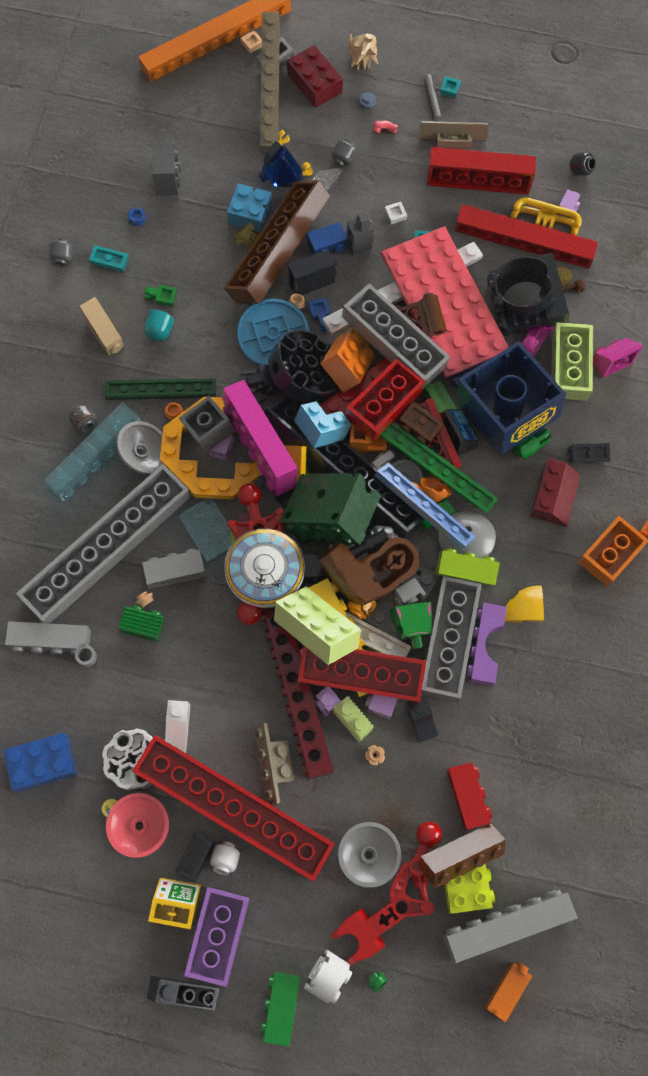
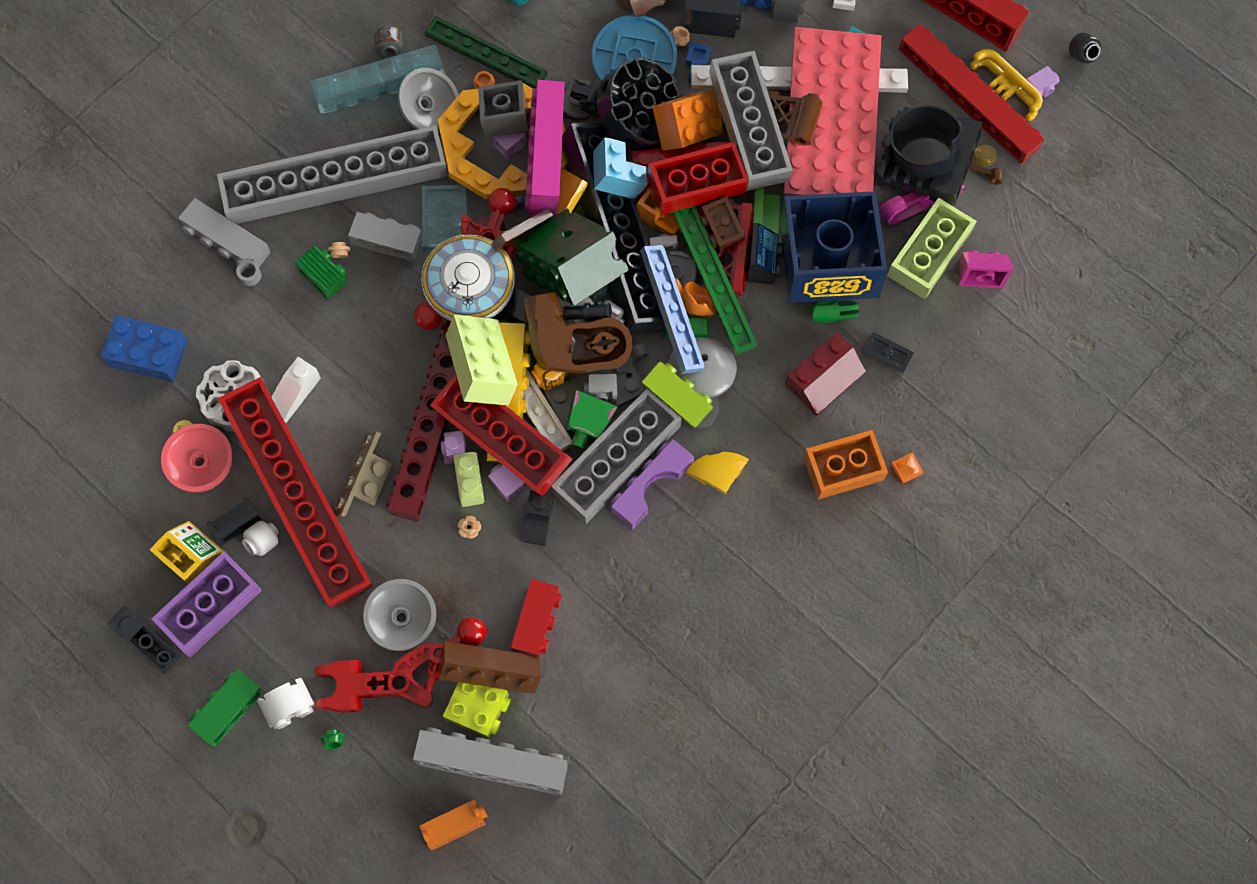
camera: 30 degrees right, 0 degrees up
(282, 508) = (521, 229): none -> tile

